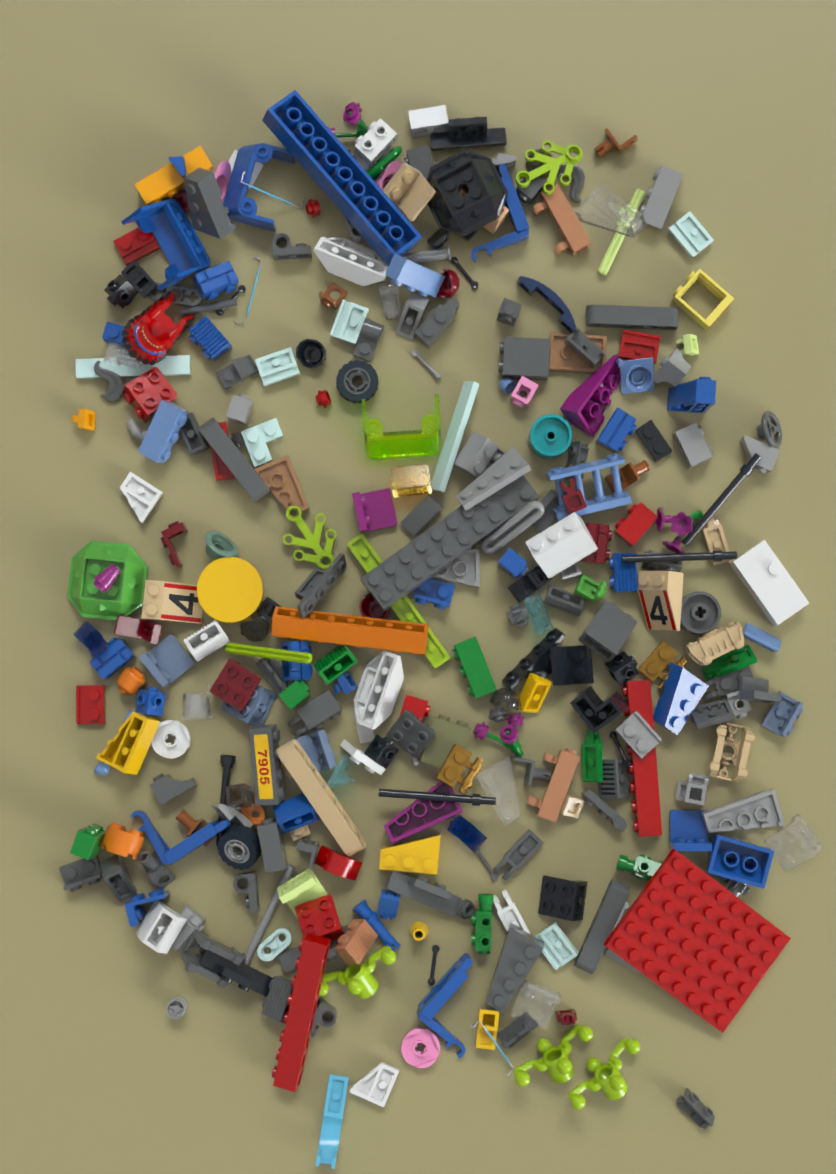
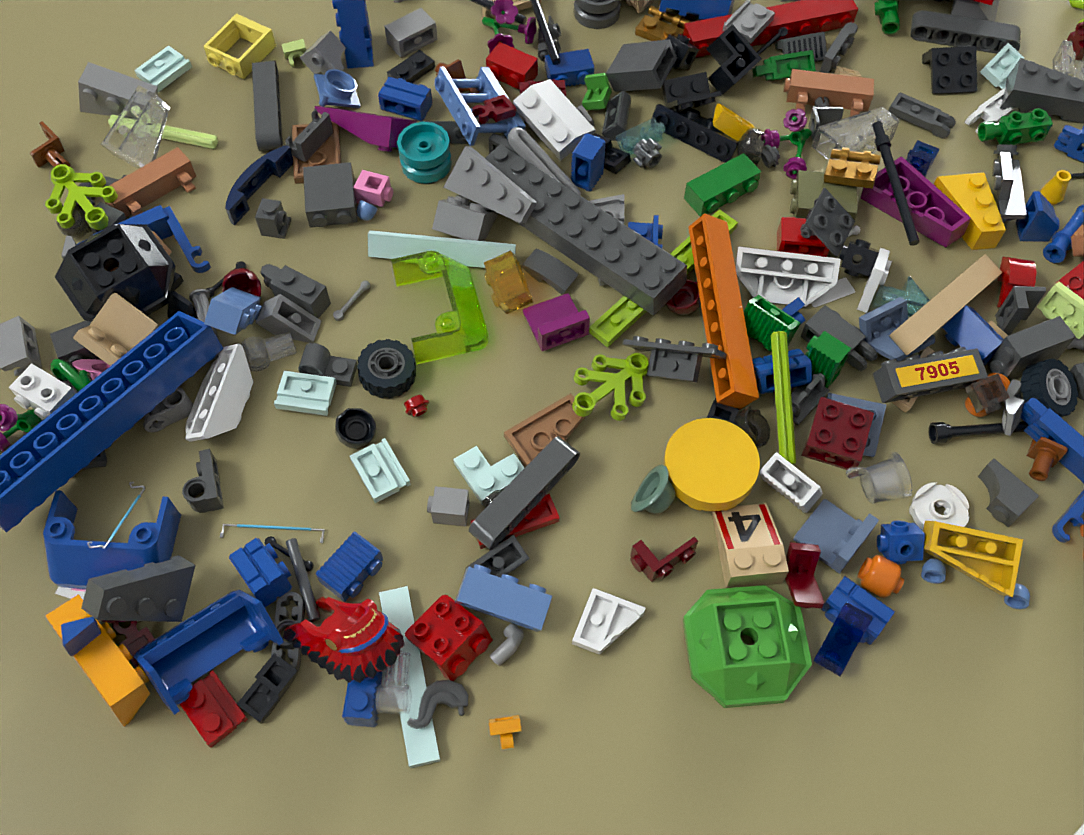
camera: 100 degrees left, 25 degrees down
(90, 704) = (933, 632): red plate -> none
(106, 578) = (748, 622): magenta cone -> none
(120, 291) = (290, 711): black brick -> none
(237, 371) = (395, 524): dark grey slope -> none
(313, 208) = (143, 465): red plate -> none
(327, 301) = (276, 420): dark orange bracket -> none
(468, 134) = (35, 298): black bracket -> none
(494, 876) = (953, 137): dark grey hinge -> none
(638, 345) = (300, 95): red plate -> none
(661, 599) = (592, 25): tan slope -> none

